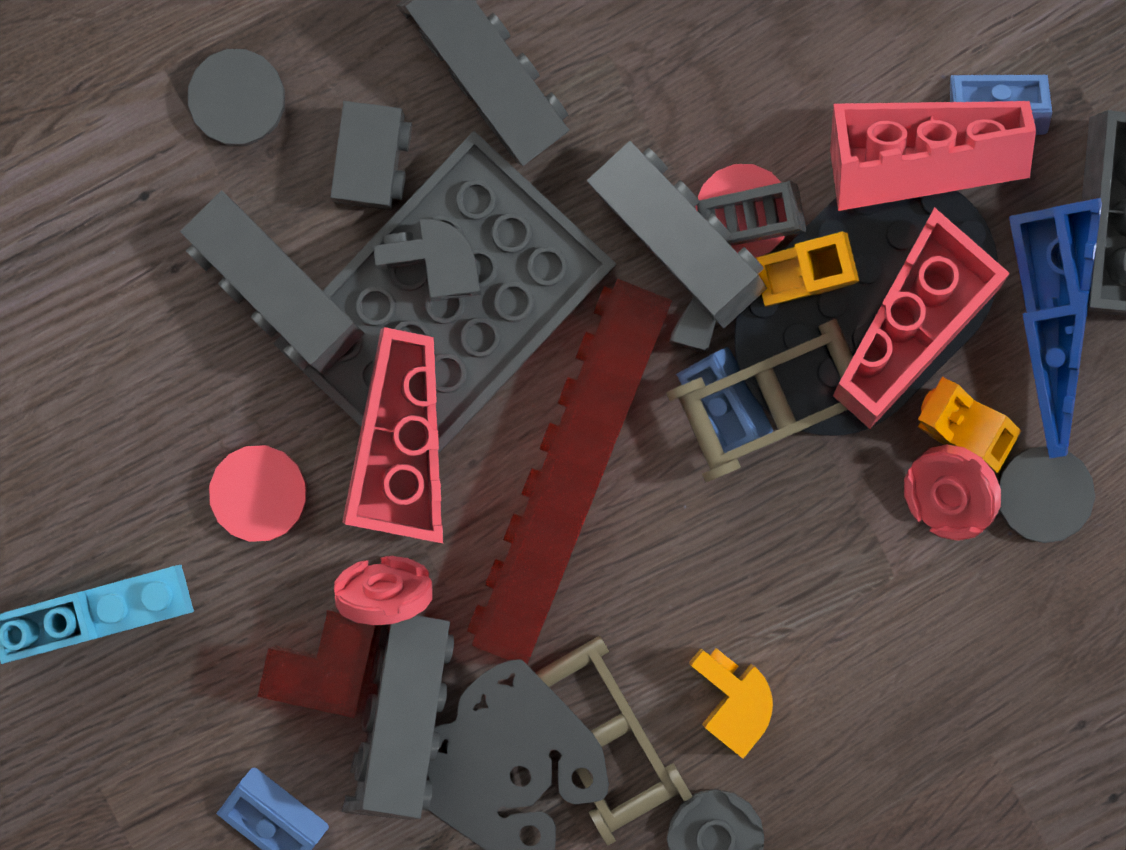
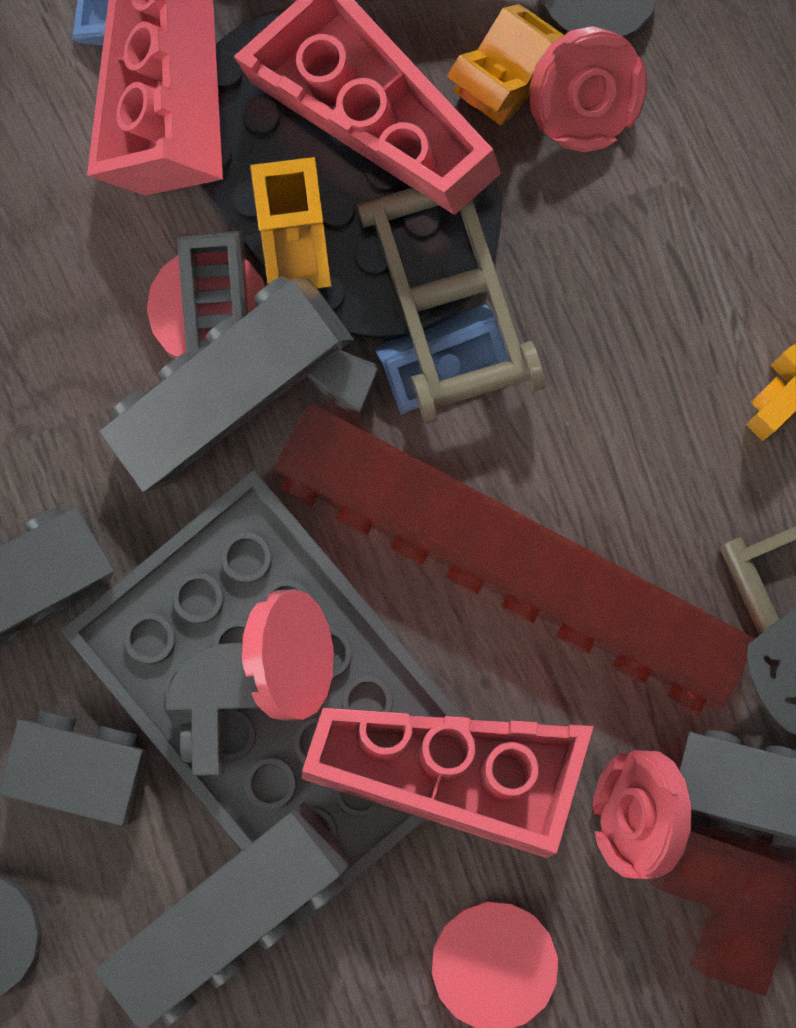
camera: 85 degrees left, 5 degrees down
(471, 307) = (288, 654): none -> coral tile

